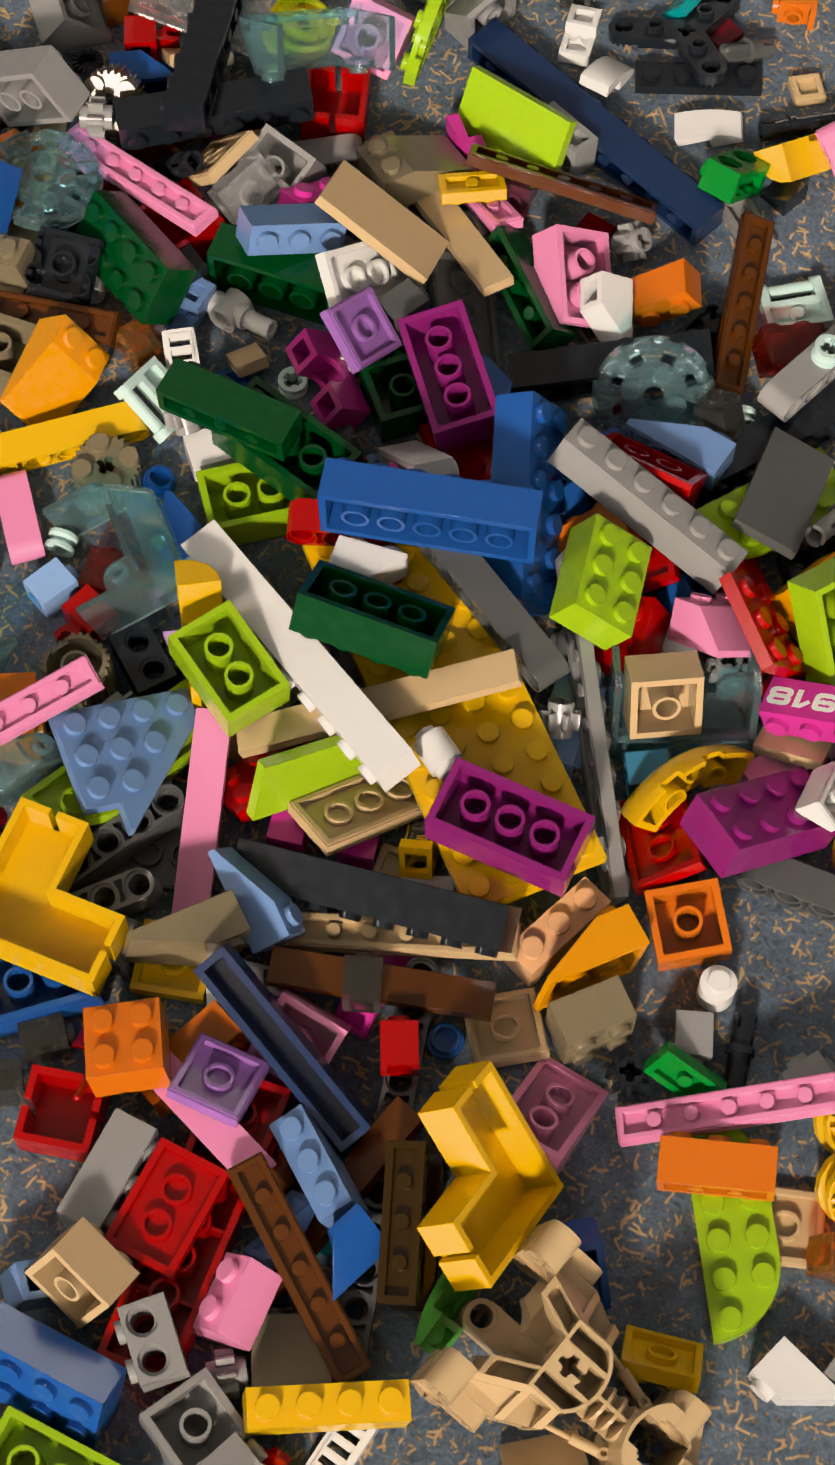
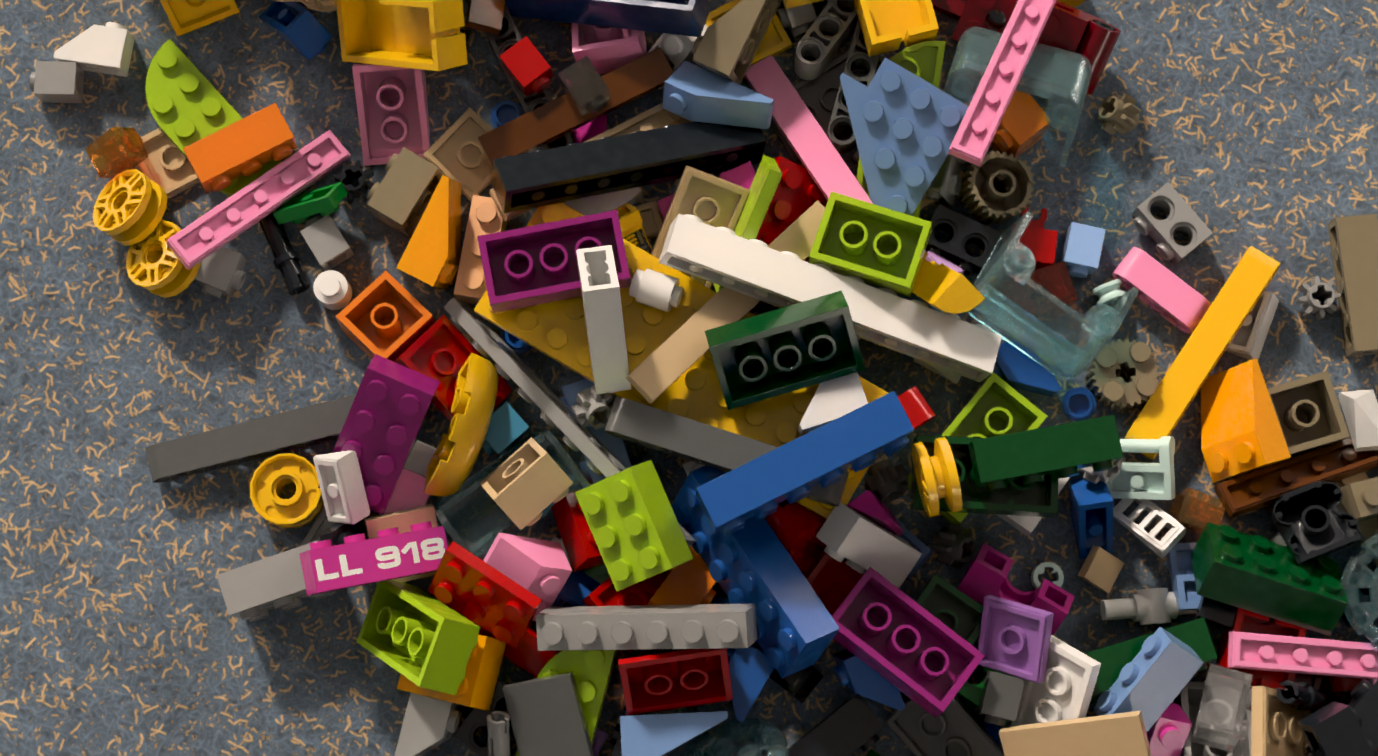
camera: 145 degrees right, 15 degrees up
(331, 435) = (937, 477): none -> yellow wheel
(503, 737) = (603, 319): none -> white slope

